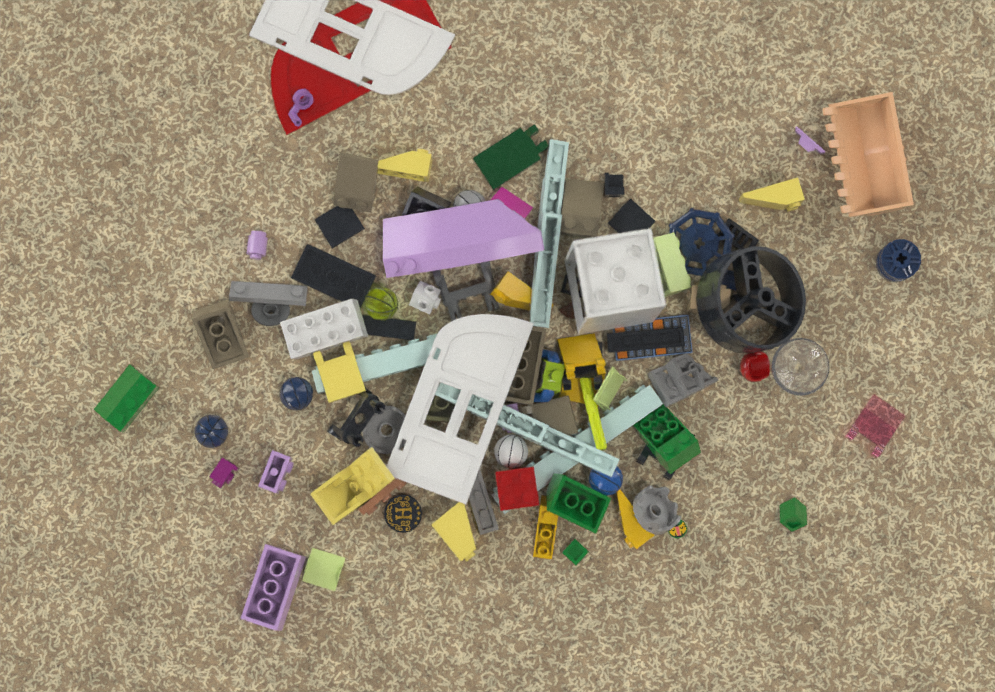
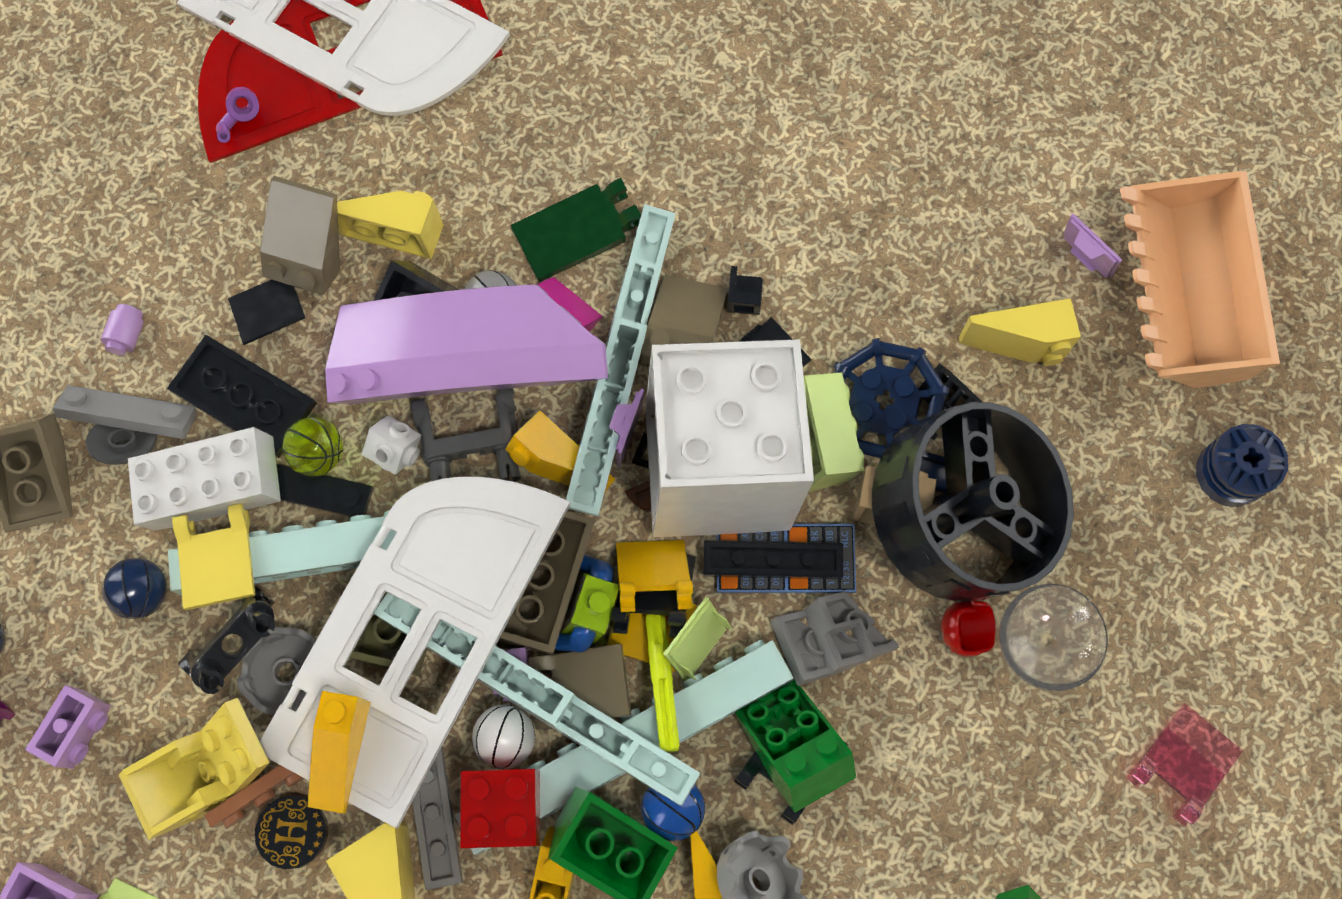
camera: 10 degrees right, 10 degrees down
(429, 468) = (335, 750): none -> yellow slope
(556, 272) = (624, 423): none -> lavender piece

